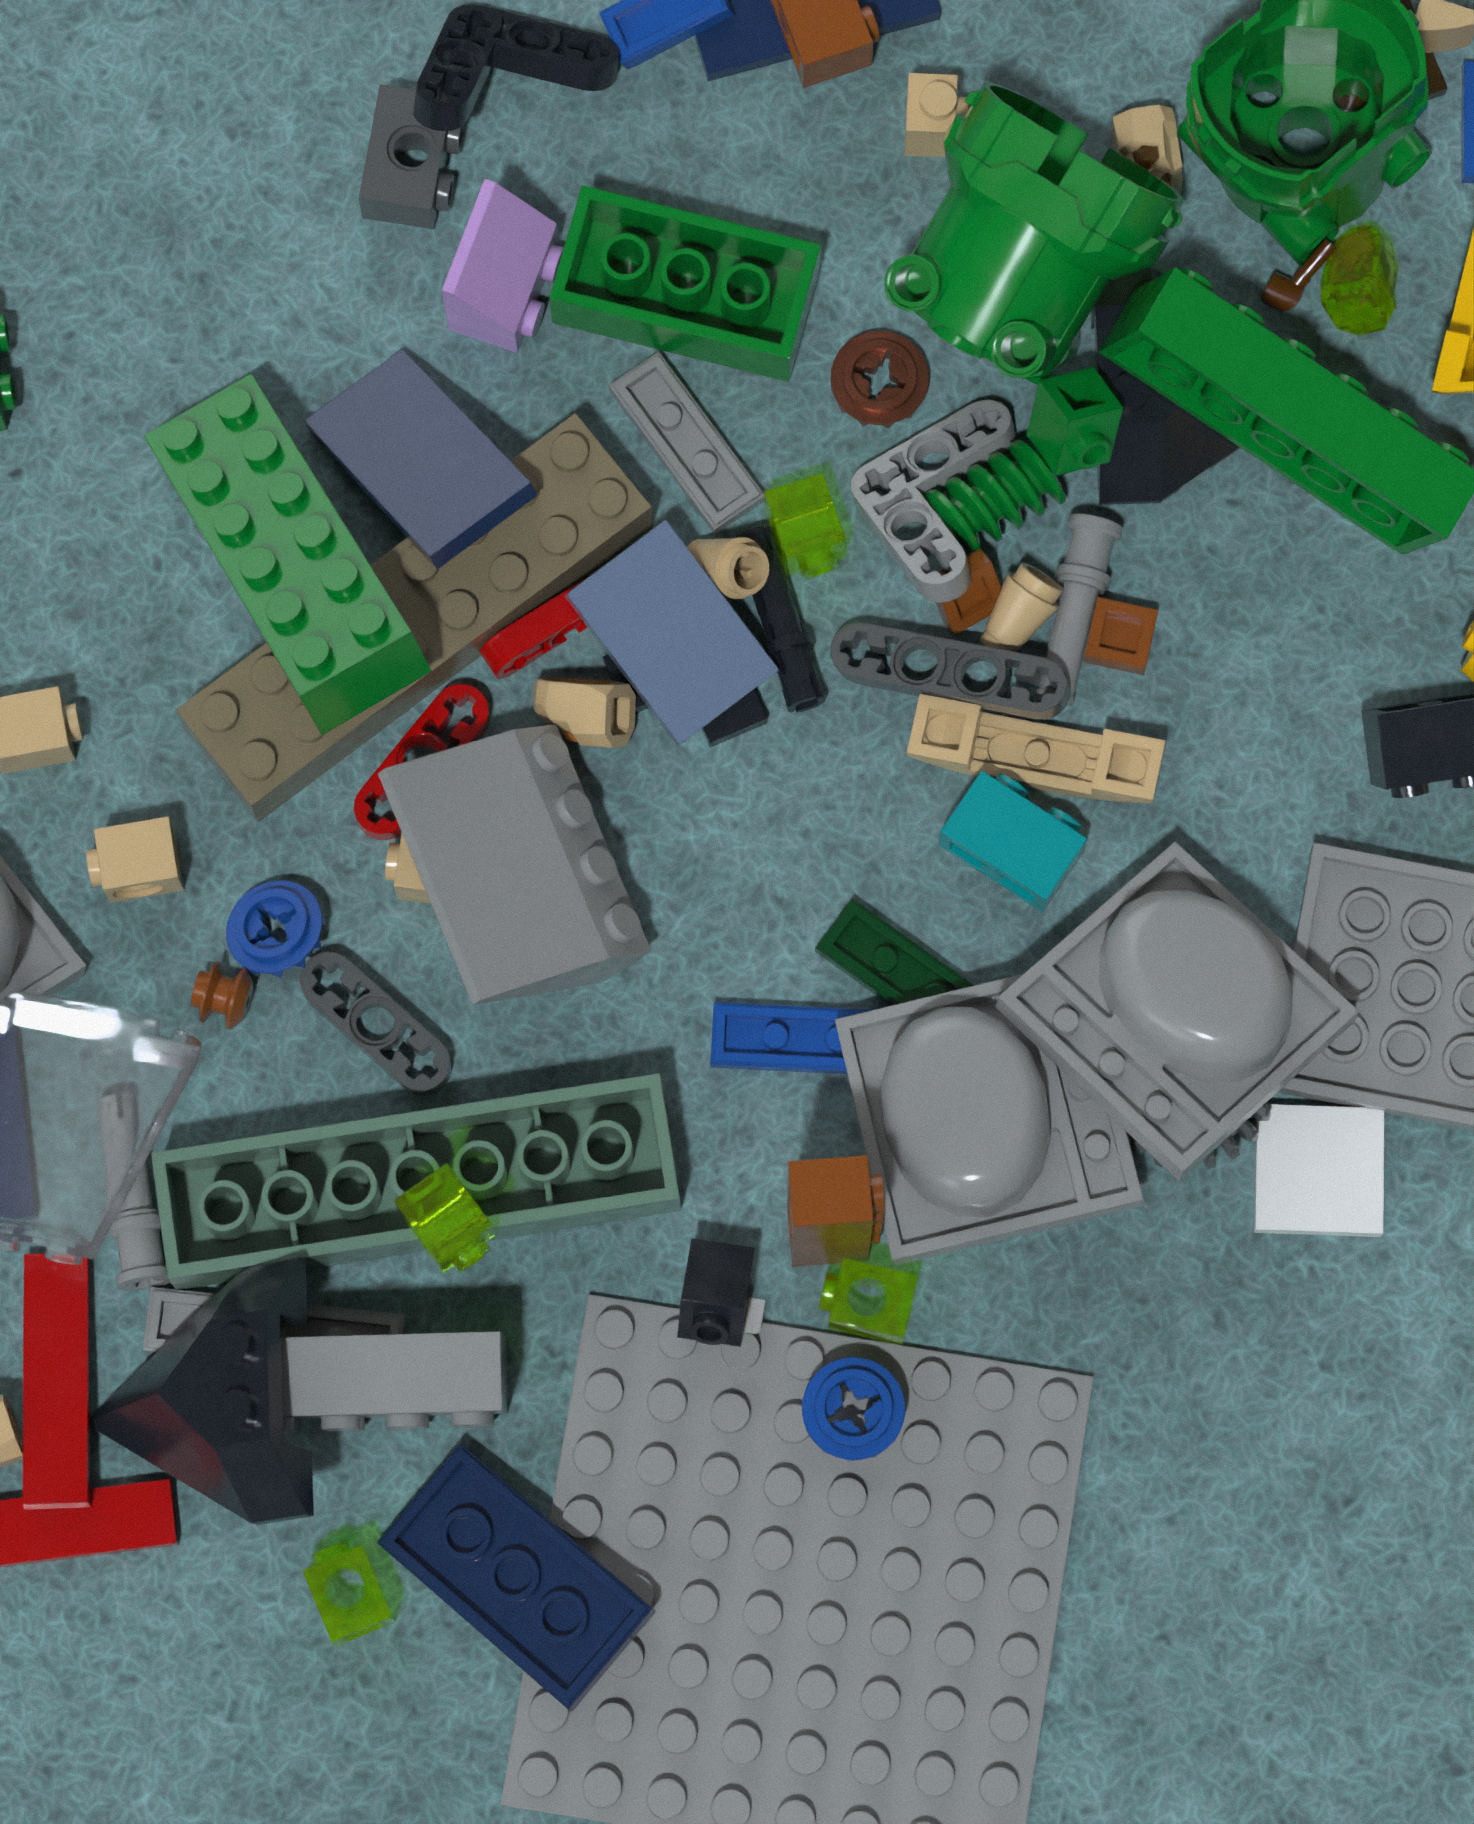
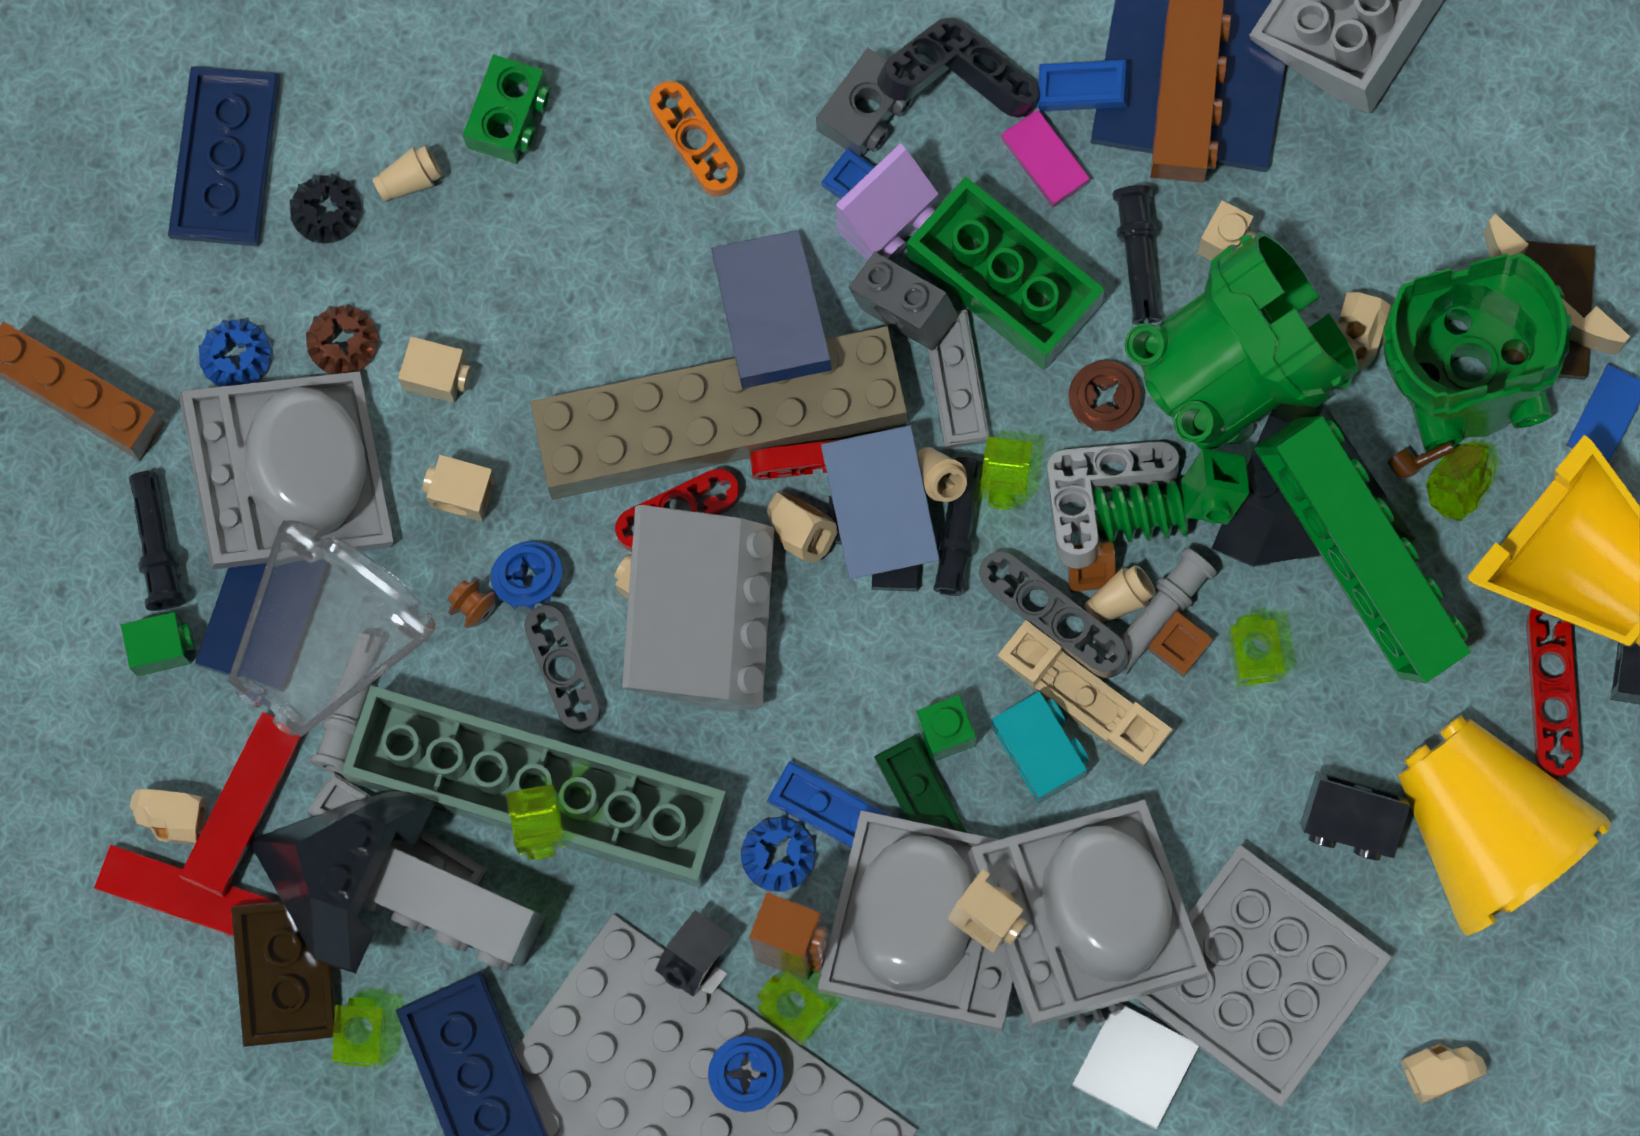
camera: 30 degrees right, 0 degrees up
(169, 288) = (686, 105): none -> orange beam
(212, 1573) = (279, 982): none -> dark brown tile
(288, 554) = (650, 333): green brick -> none
(430, 255) = (846, 173): none -> blue tile
(577, 374) = (903, 301): none -> dark grey brick
(662, 124) = (1045, 158): none -> dark pink tile
(774, 1146) = (780, 876): none -> blue gear
(820, 162) = (1136, 232): none -> black pin
(888, 871) = (945, 728): none -> green brick
(1064, 1064) = (988, 914): none -> tan brick
(1217, 627) = (1255, 671): none -> clear neon green brick

